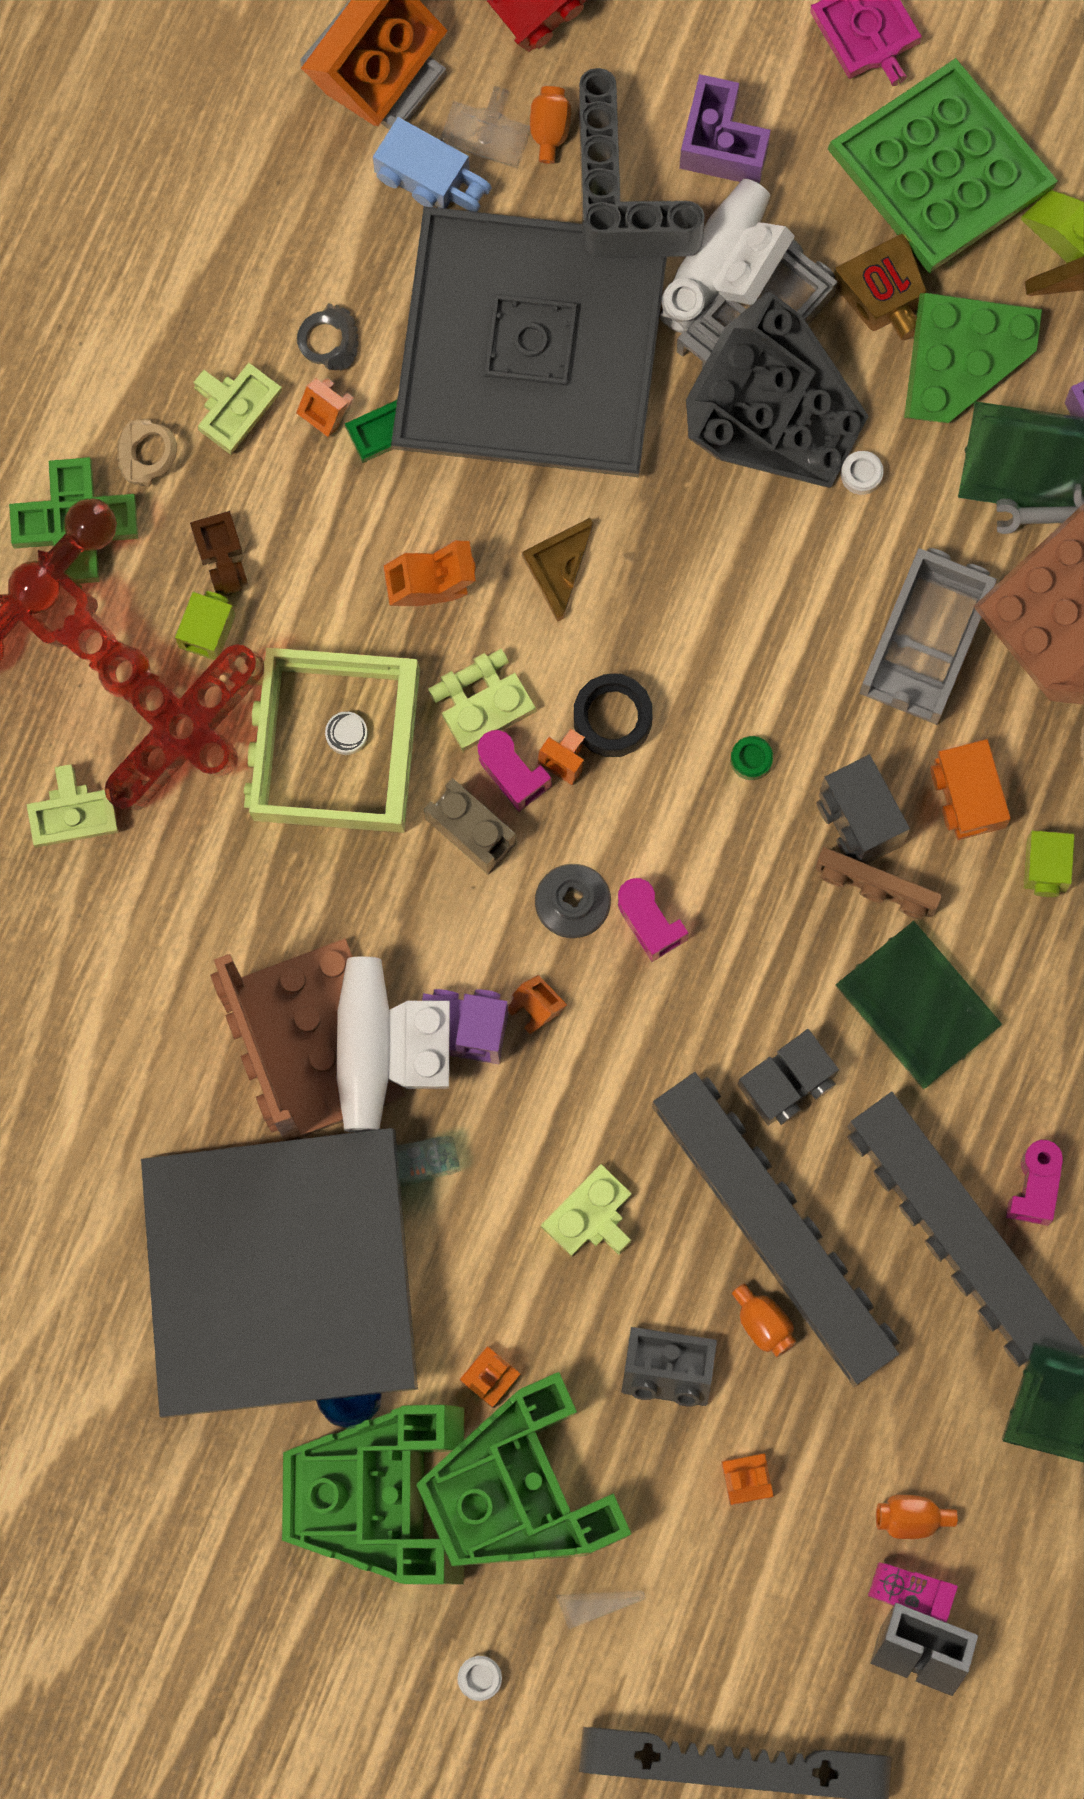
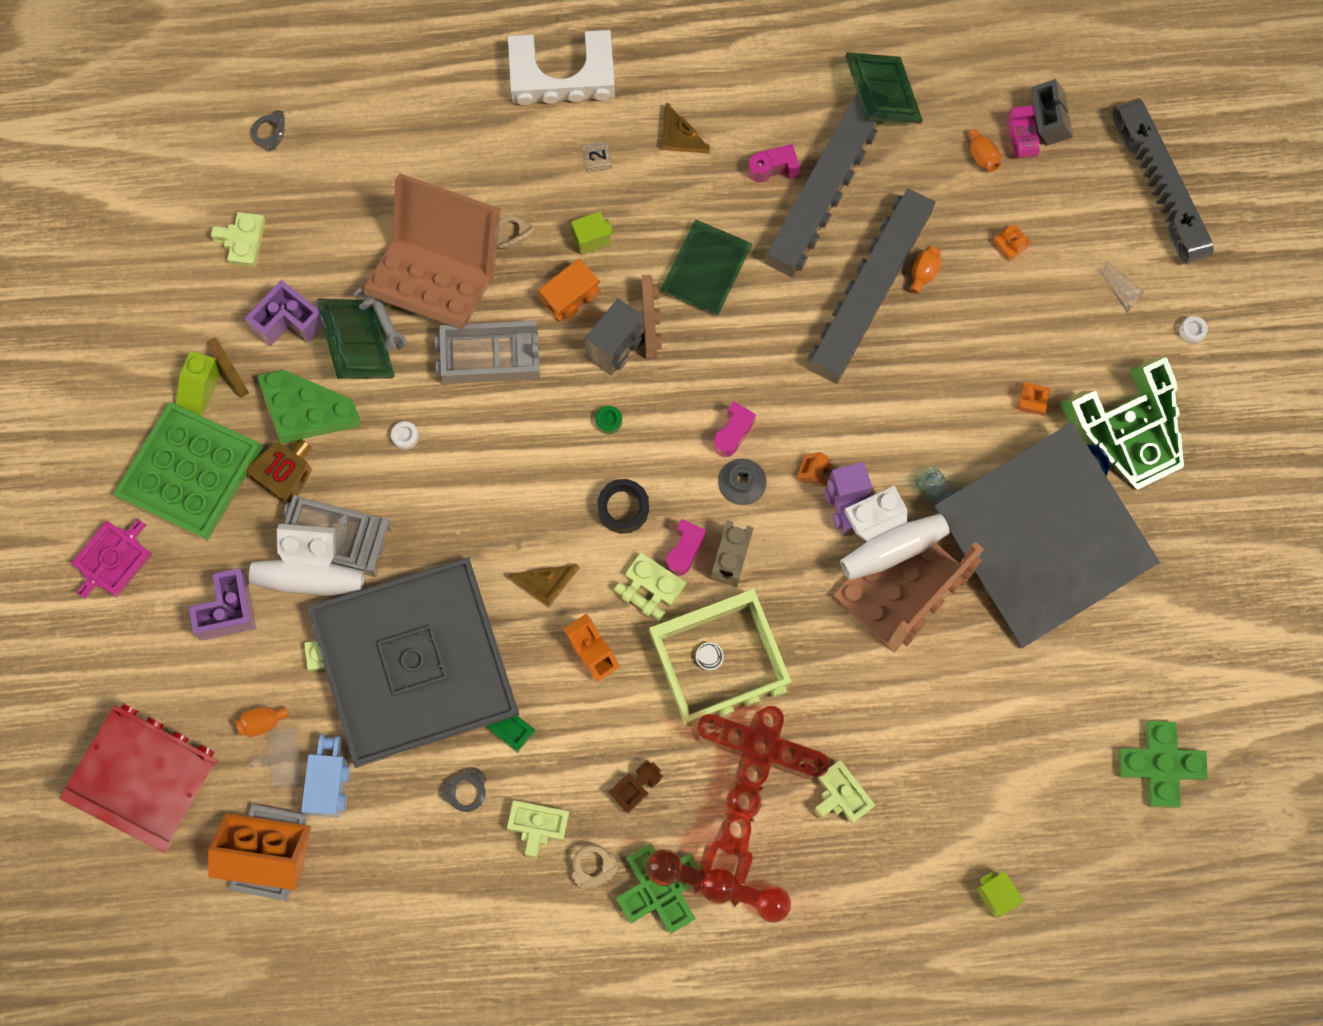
camera: 120 degrees left, 5 degrees down
(205, 624) = (686, 771): lime brick -> none
(323, 406) = (513, 768): orange tile -> none
(500, 1496) = (1099, 353): bright green wedge -> none
(563, 757) = (662, 521): orange tile -> none
(590, 1214) = (916, 387): yellowish green hinge -> none
(625, 227) = (288, 656): dark grey beam -> none
(669, 1367) = (976, 306): dark grey bracket -> none
(683, 300) = (347, 577): white tile -> none
(774, 398) = (388, 496): dark grey wedge -> none
(788, 1078) = (784, 315): dark grey piece -> none

